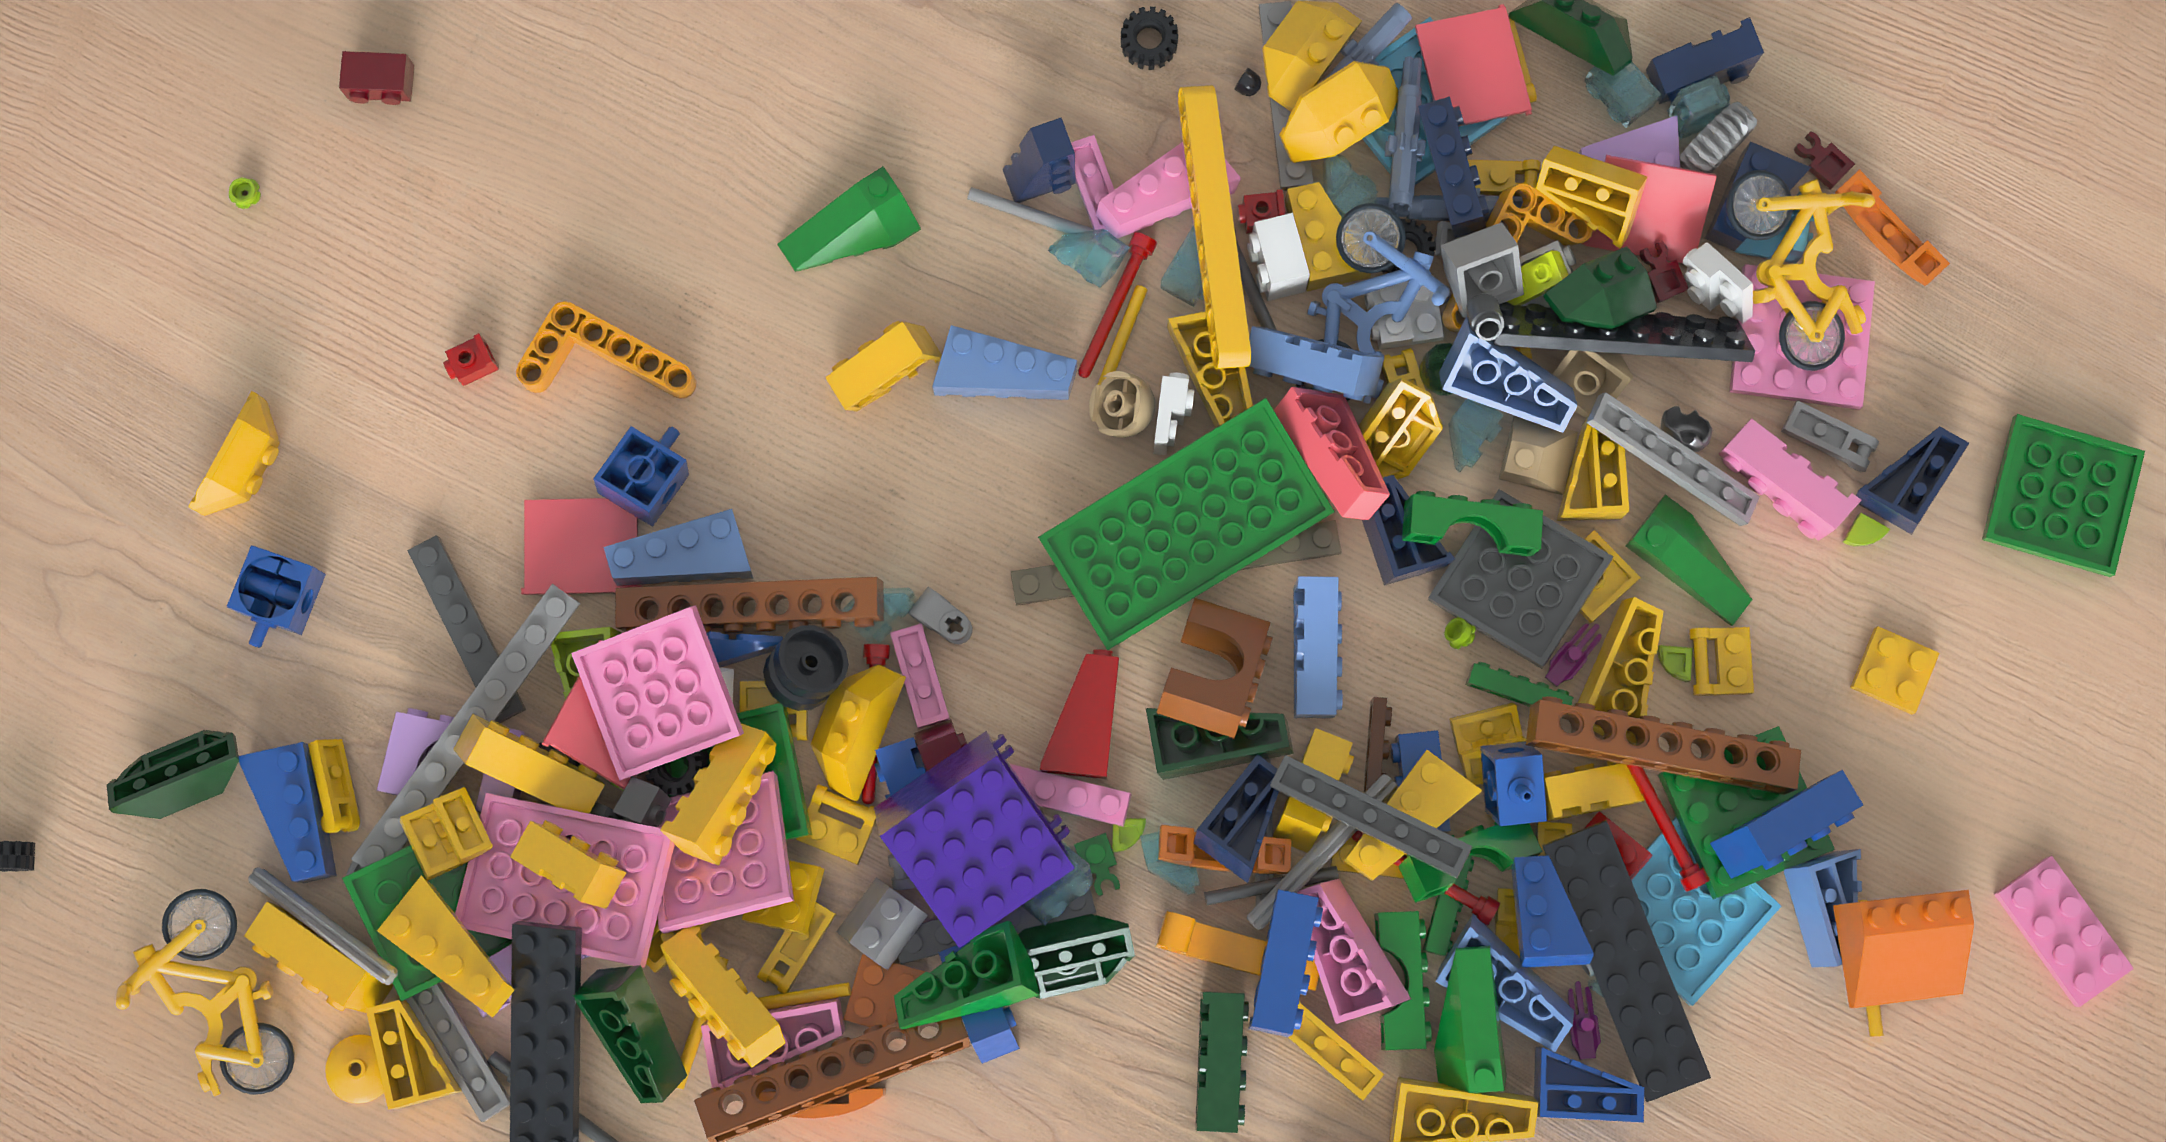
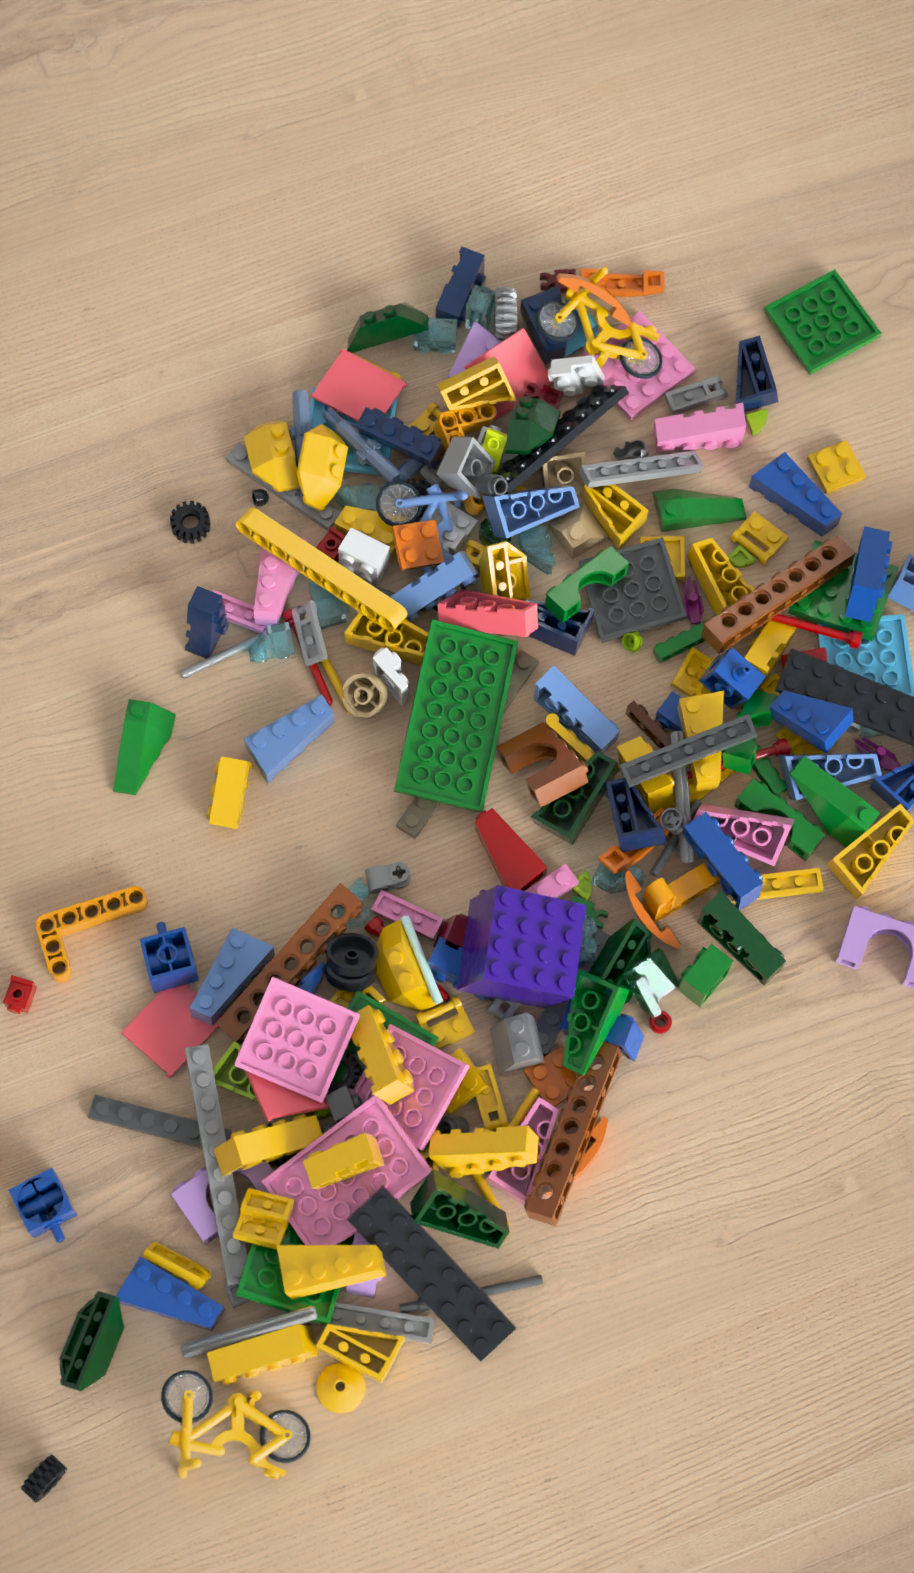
camera: 50 degrees left, 10 degrees down
(727, 937) = (453, 1122): none -> dark grey brick
(874, 739) = (421, 959): none -> light aqua bar
(1042, 1063) = (660, 1029): none -> red plate
(1081, 1004) = (651, 981): none -> clear green bracket
(1136, 281) = (309, 633): none -> light grey plate
(1140, 1058) = (705, 975): none -> green brick
(1148, 971) = (664, 934): none -> orange slope
(1275, 865) = (670, 818): none -> flat silver wheel
(1277, 667) = (582, 751): none -> yellow plate
(1342, 302) = (417, 545): none -> orange plate
(1814, 654) = (796, 493): none -> blue wedge
(1820, 180) = (574, 282): none -> orange slope

